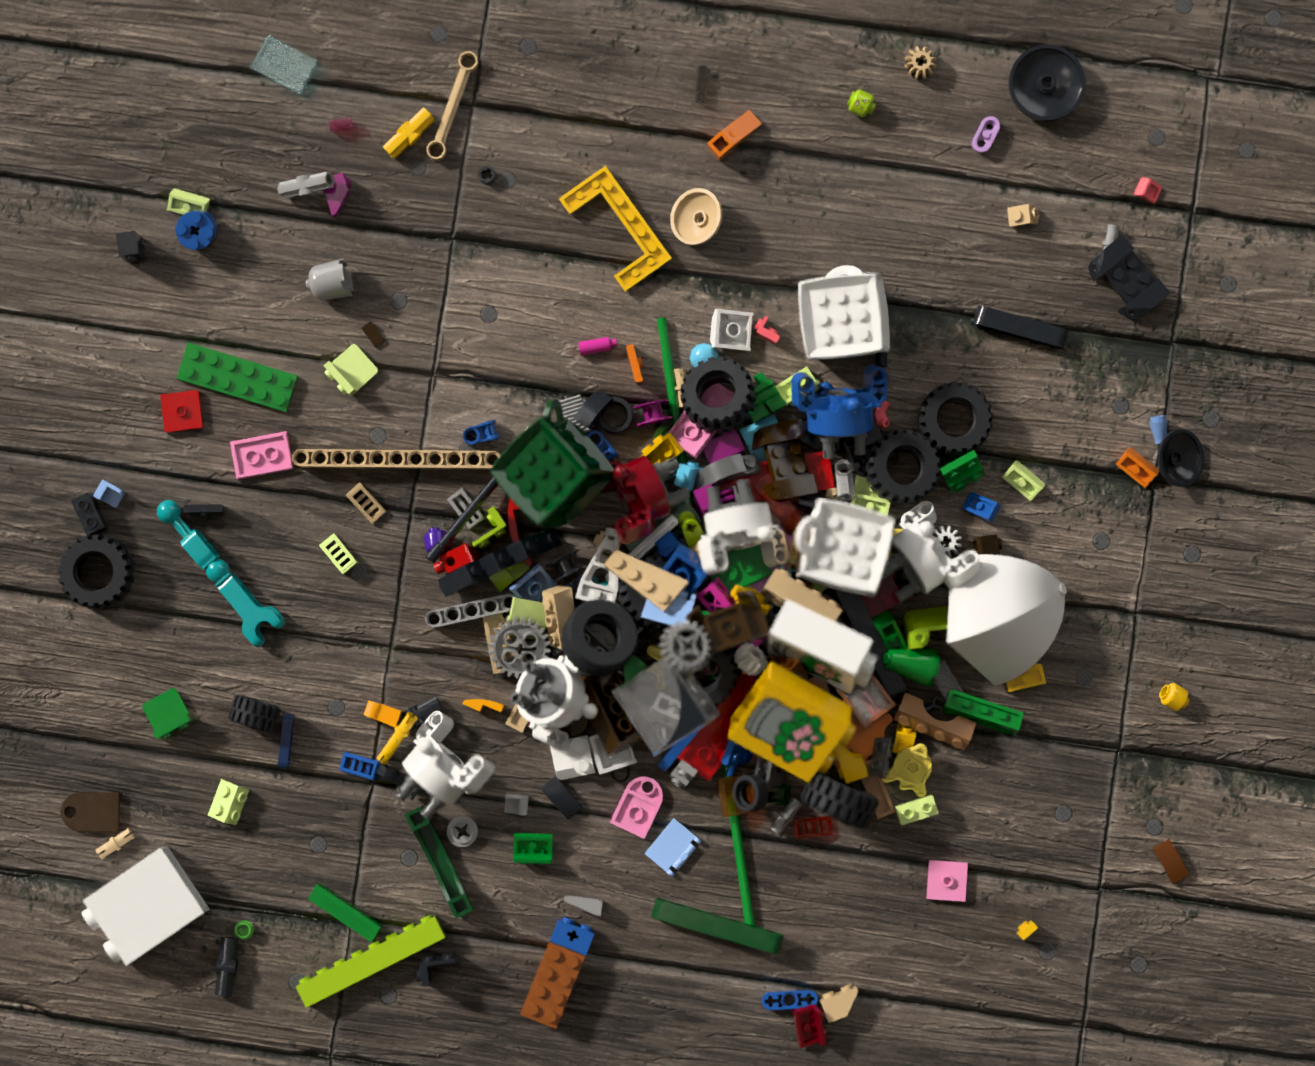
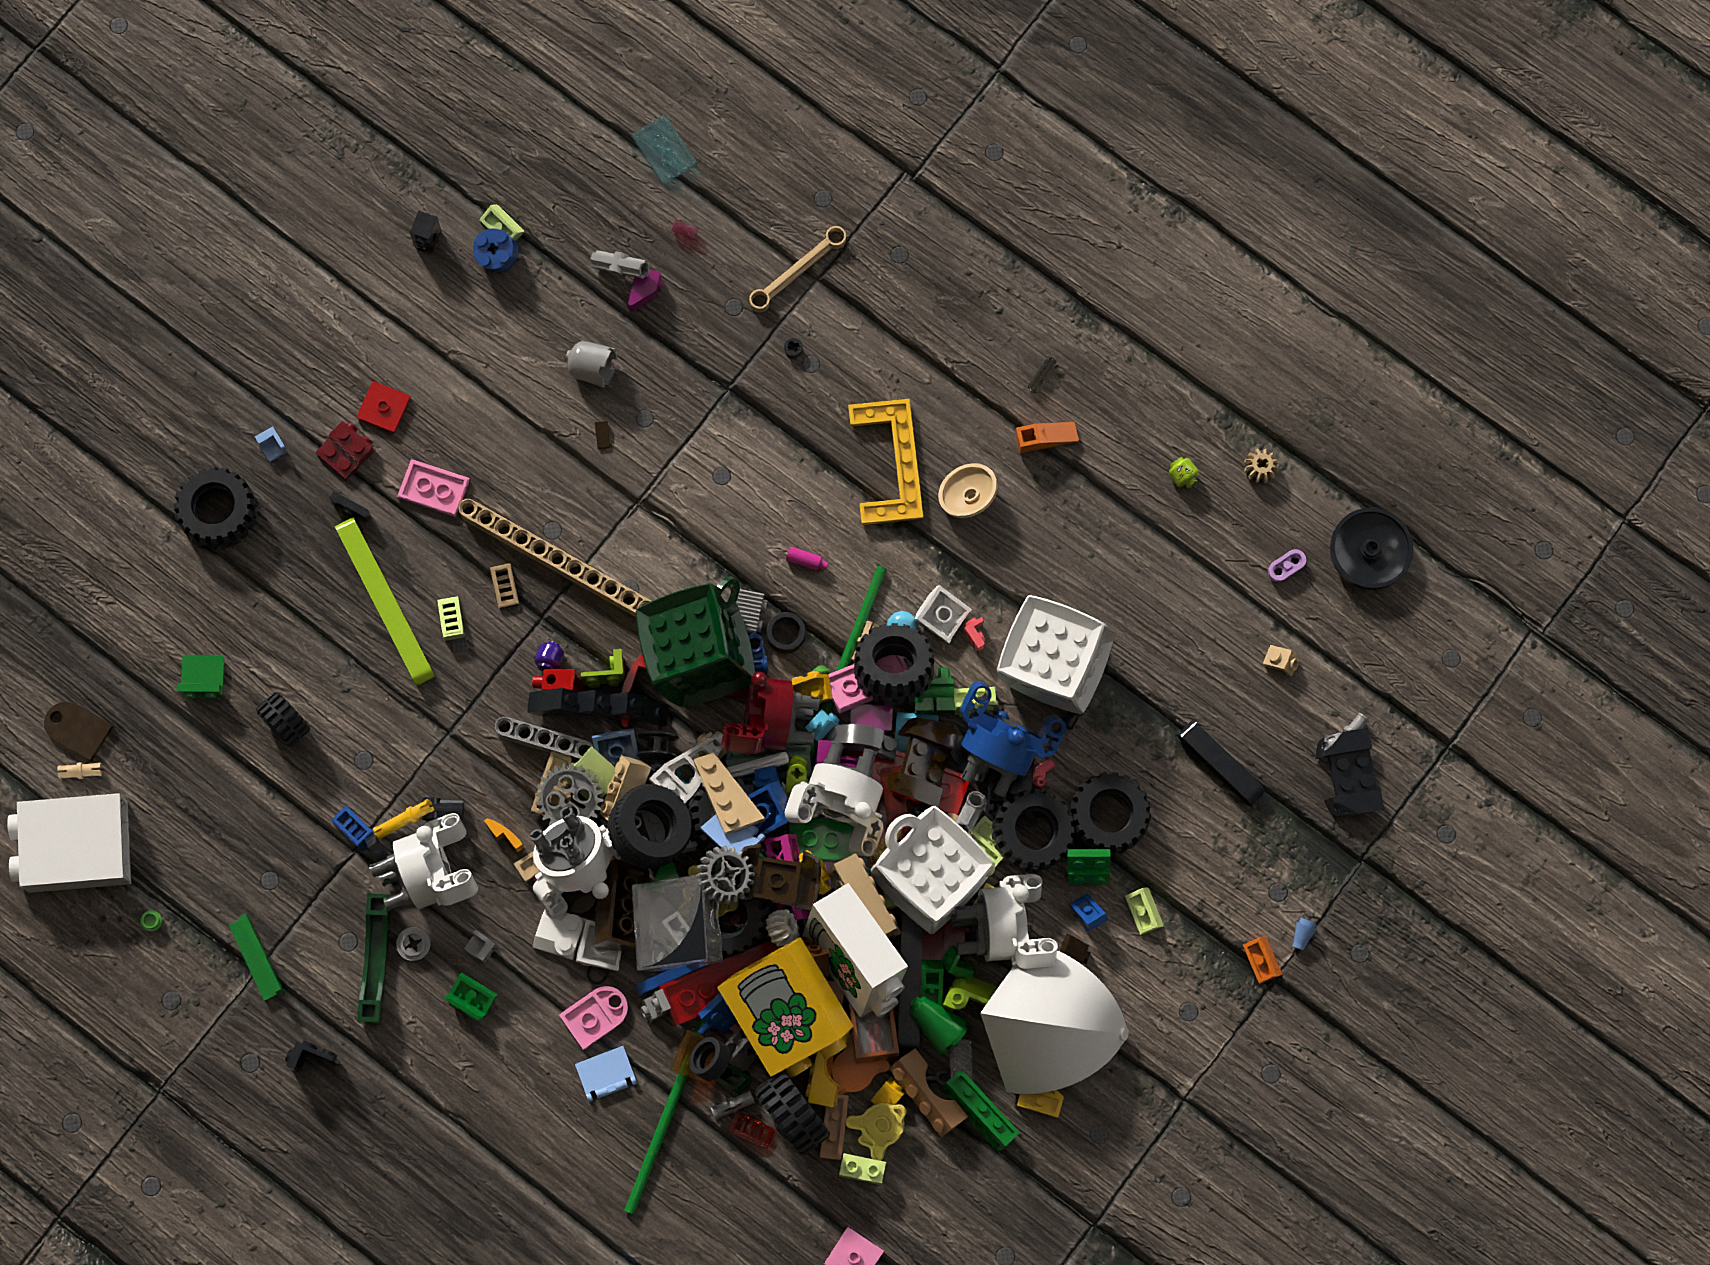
camera: 25 degrees right, 10 degrees down
(89, 514) = (241, 452): black brick -> none
(172, 464) = (345, 449): none -> dark red plate
(219, 572) = (329, 570): teal piece -> none
(226, 966) = (113, 946): black piece -> none
(228, 802) = (209, 792): yellowish green bracket -> none
(237, 377) = (453, 405): green plate -> none
(277, 570) = (384, 601): none -> lime beam
(286, 741) = (297, 764): dark blue beam -> none
(351, 370) = (562, 455): yellowish green bracket -> none
(370, 961) = (253, 1018): lime brick -> none
(383, 713) = (404, 789): light orange leg -> none
(409, 133) = (743, 271): yellow piece -> none
(438, 549) = (550, 660): black piece -> none
(455, 495) = (597, 660): light grey tile -> none
(482, 433) = (651, 580): blue piece -> none
(509, 575) = (598, 725): lime slope -> none
(552, 985) = (413, 1139): dark orange brick -> none
(561, 798) = (526, 965): black slope -> none
(563, 939) = (465, 1115): blue brick -> none
(589, 905) = (493, 1083): light grey slope -> none
(592, 408) = (767, 612): black slope -> none
(636, 364) = (833, 595): orange plate -> none
(653, 412) = (823, 648): magenta piece -> none
(717, 926) = (605, 1173): dark green beam -> none
(881, 752) = (861, 1092): dark grey hinge -> none
(902, 610) = (956, 966): none -> green bracket
(950, 546) = (1042, 922): white gear -> none
(1148, 190) = (1416, 702): coral slope -> none
(1174, 697) = (1177, 1201): yellow head -> none
(1180, 458) = (1317, 972): black dish -> none

